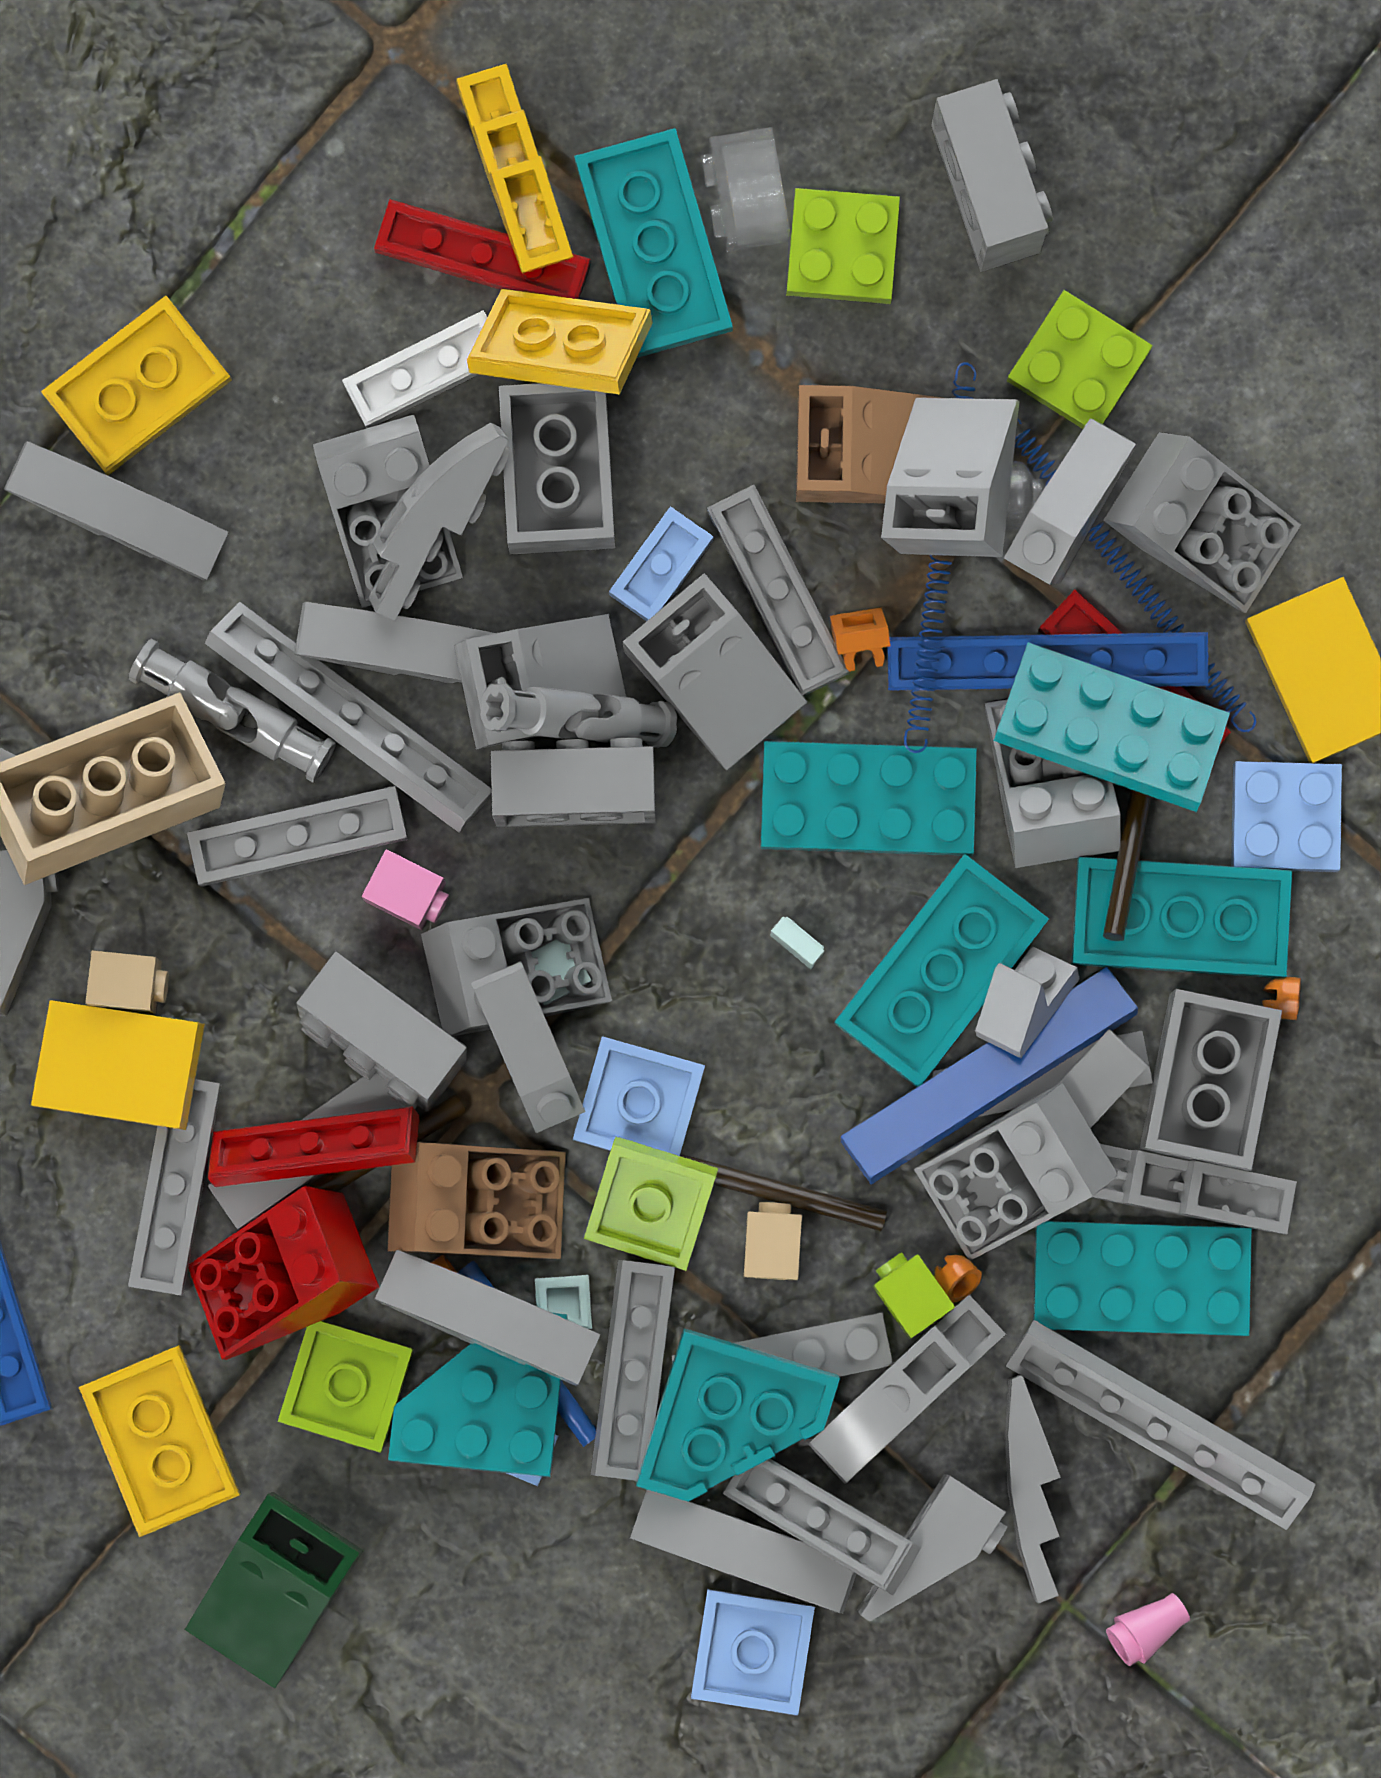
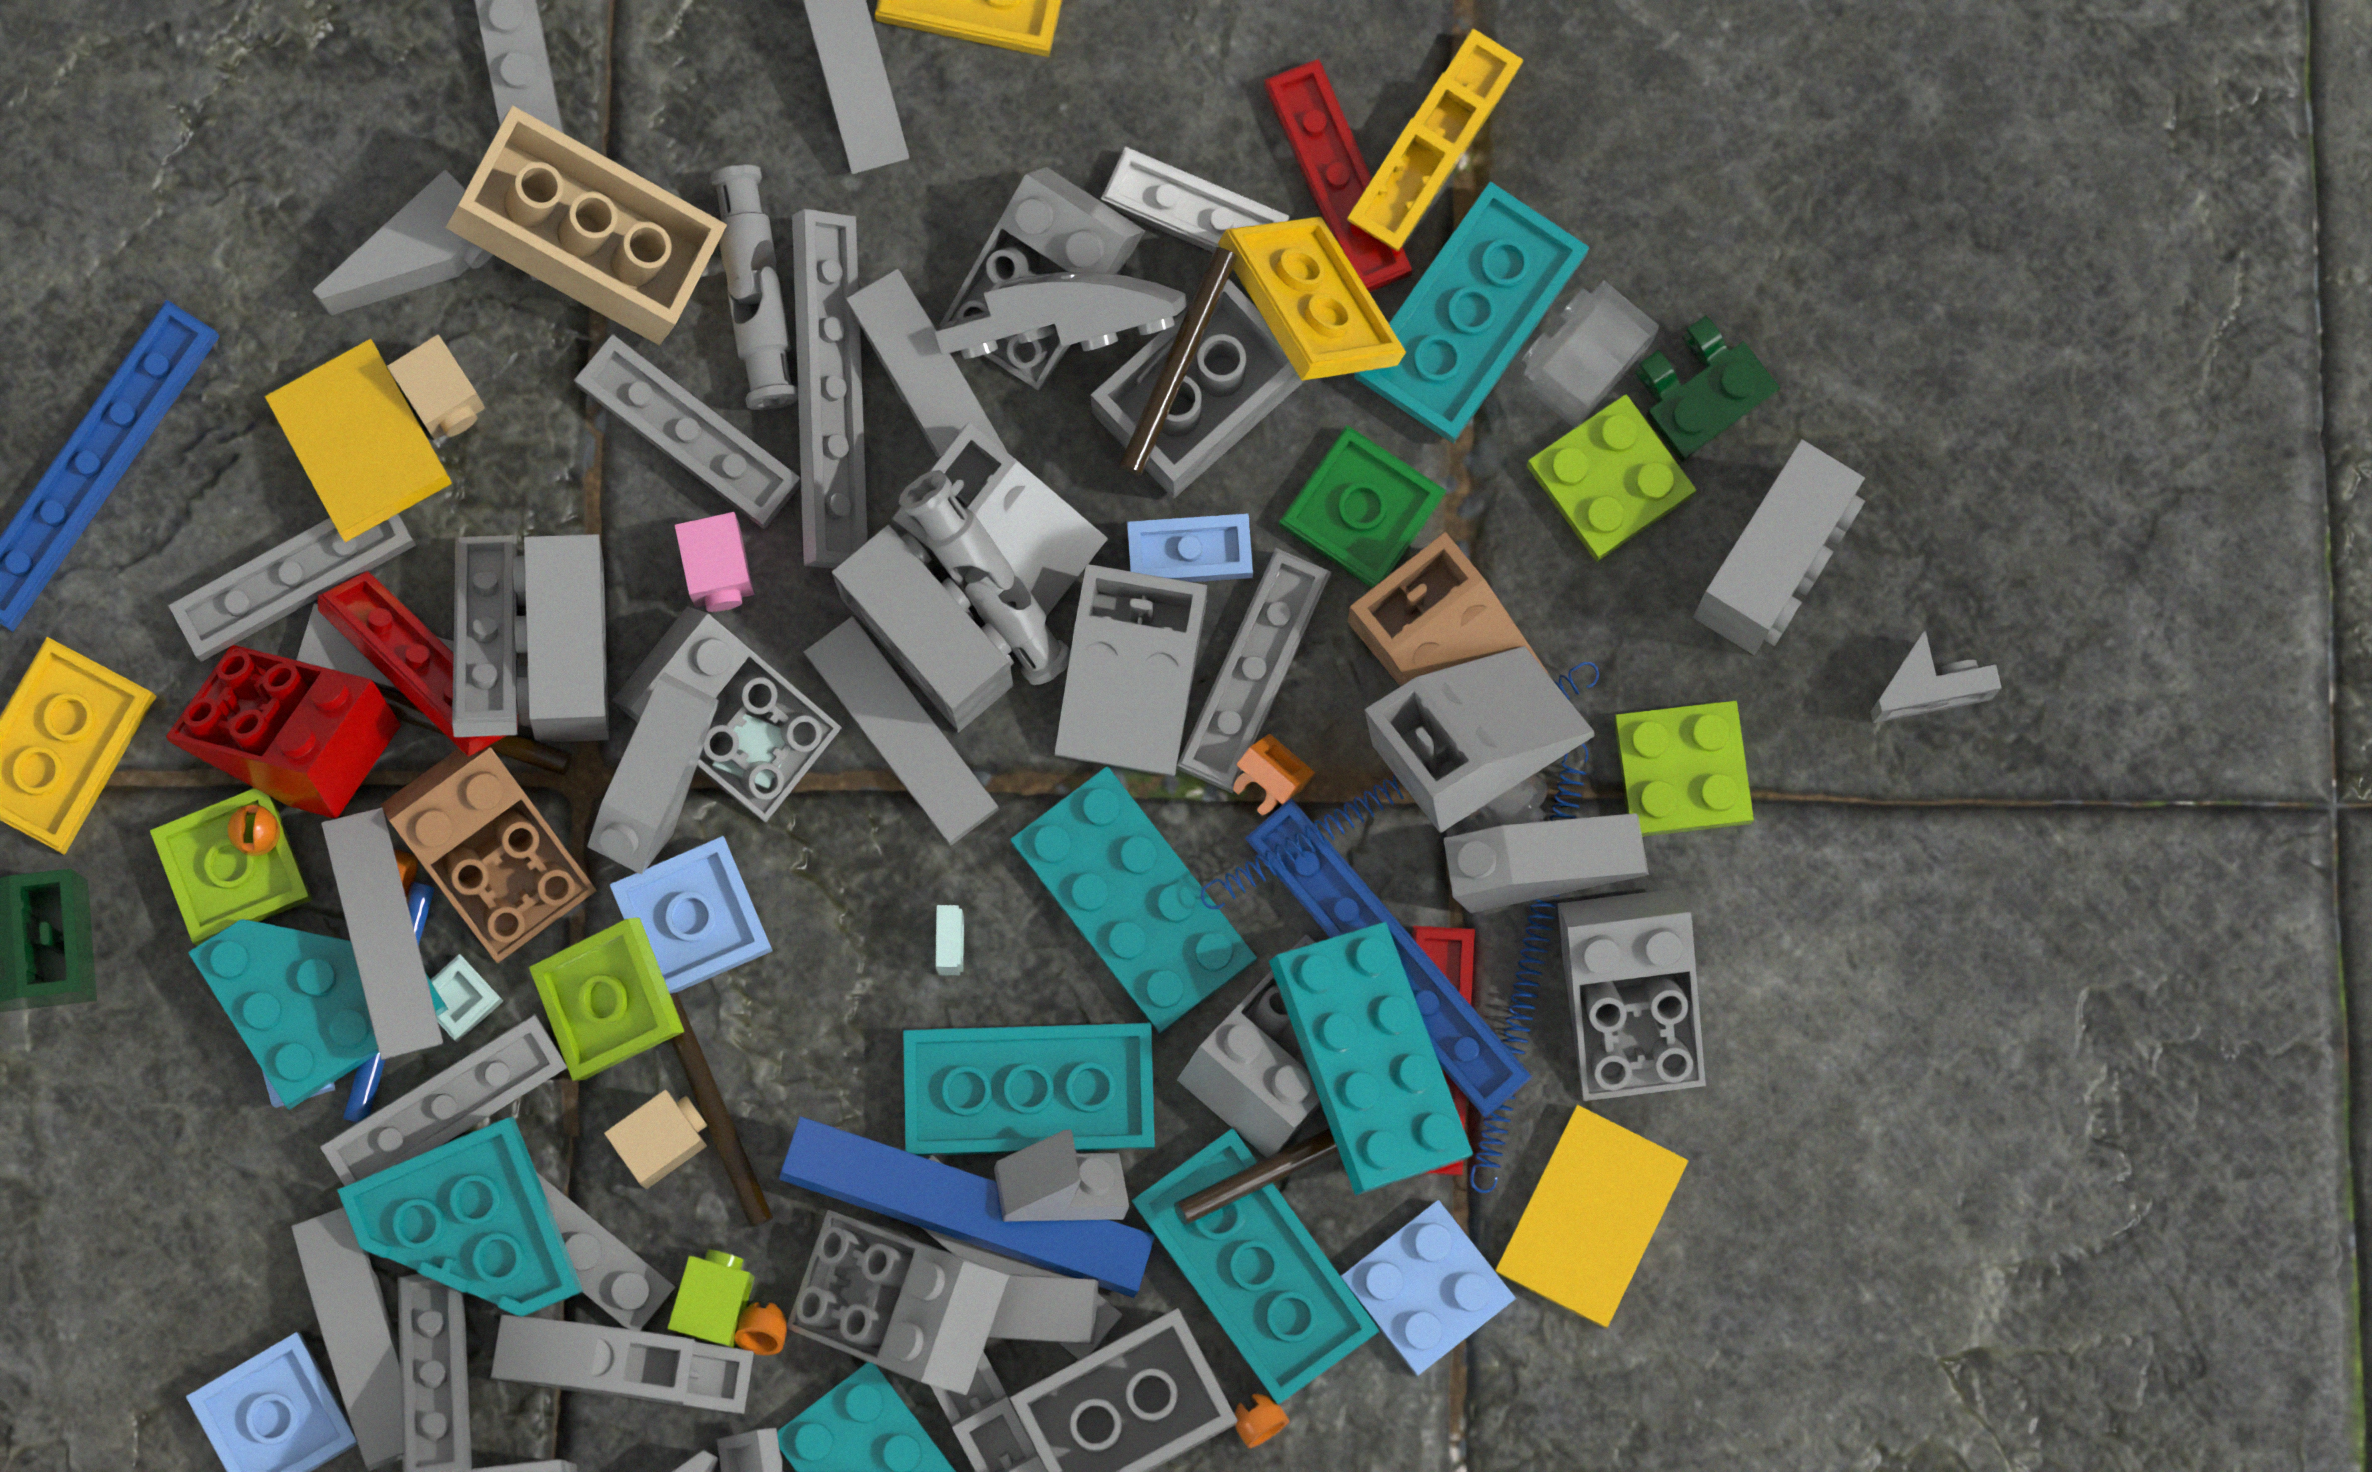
camera: 50 degrees right, 5 degrees down
(335, 1085) = (485, 637): none -> light grey tile
(346, 1341) = (265, 832): none -> orange hinge
(535, 465) = (1178, 361): none -> dark brown bar
(624, 859) = (901, 731): none -> light grey tile
(726, 427) = (1362, 508): none -> green tile
(846, 134) = (1710, 401): none -> dark green plate
(1153, 163) = (1919, 691): none -> light grey slope

